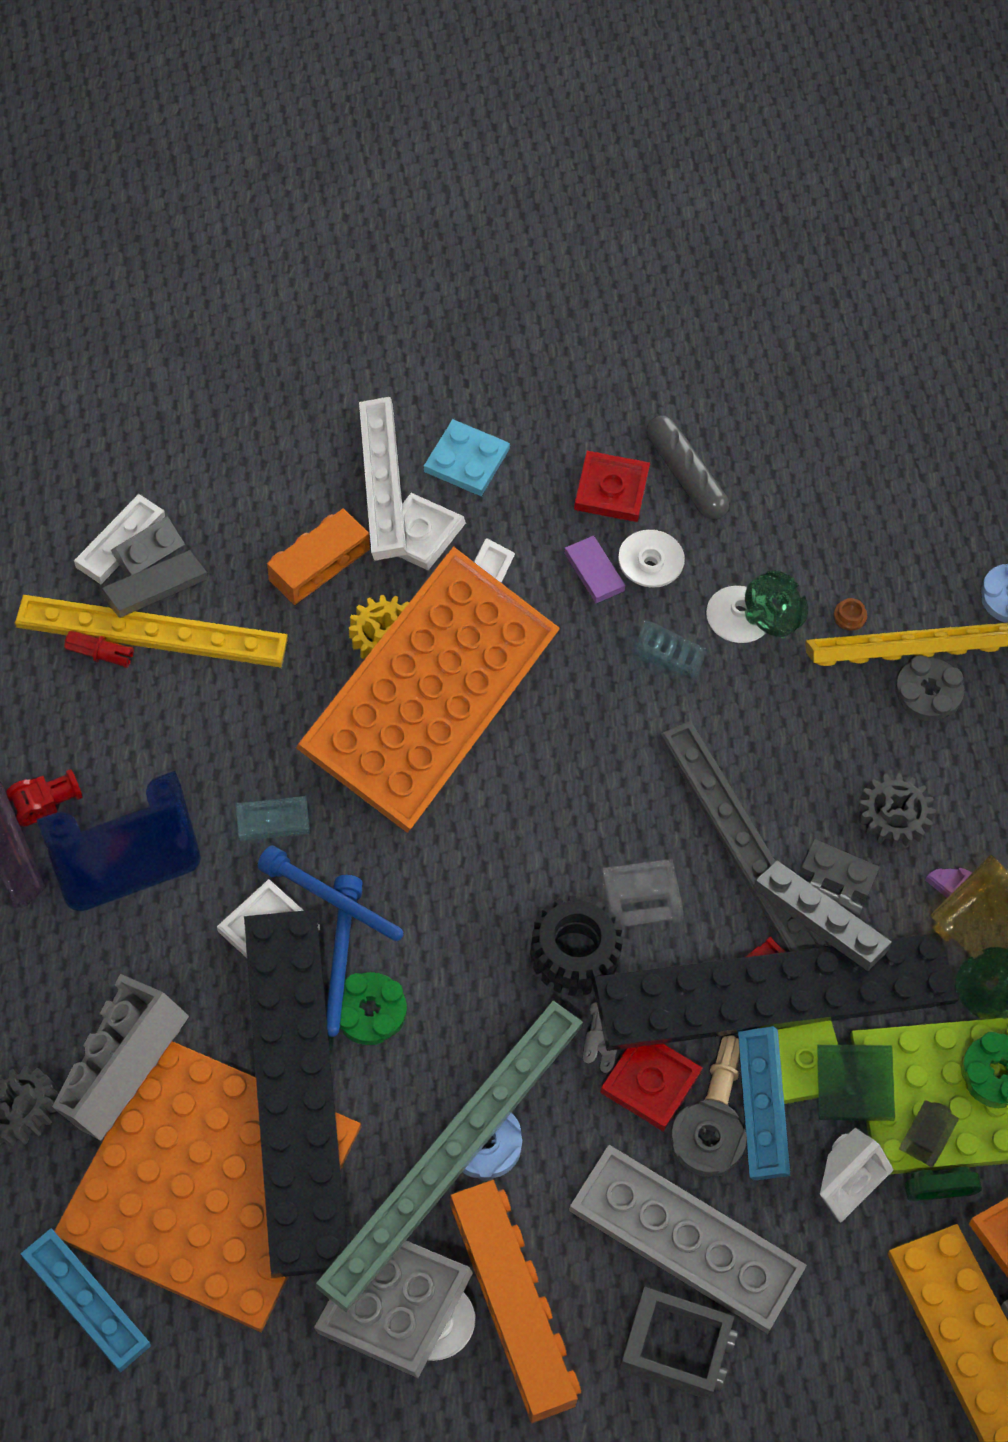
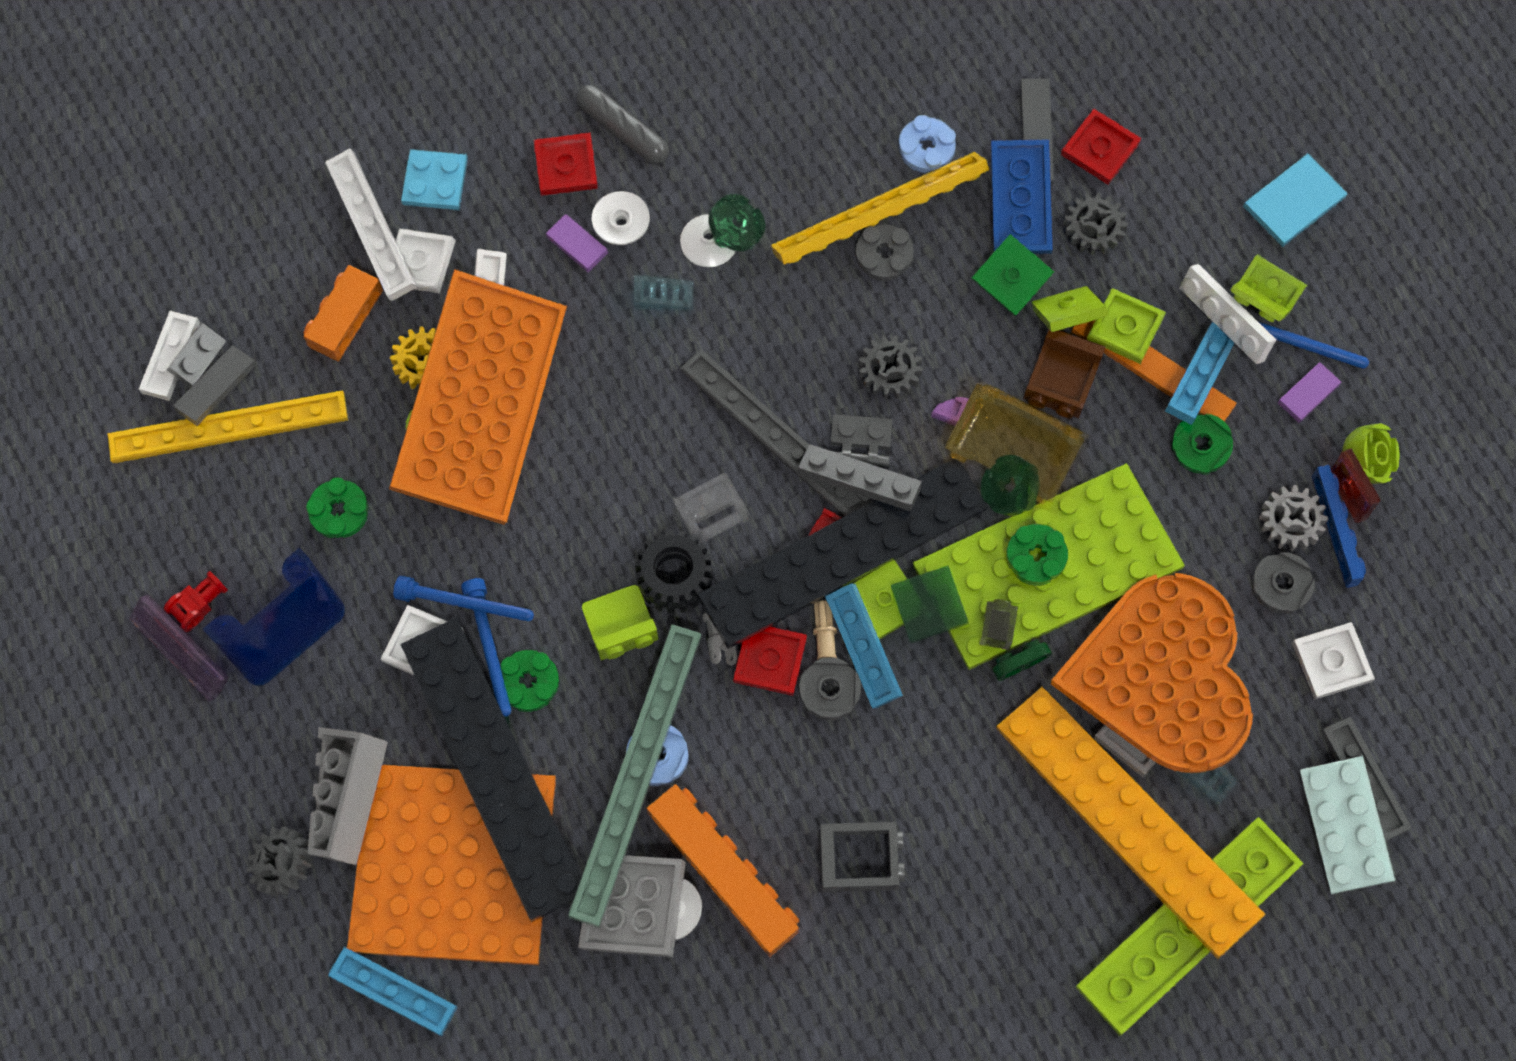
camera: 15 degrees left, 10 degrees up
(98, 648) = (189, 458): red axle -> none
(236, 735) = (320, 508): none -> green plate
(272, 818) = (391, 552): clear light blue plate -> none
(495, 980) = (619, 622): none -> lime bracket
(688, 1238) = (840, 773): light grey plate -> none
(850, 614) = (800, 210): dark orange plate -> none
(852, 1172) = (949, 677): white slope -> none

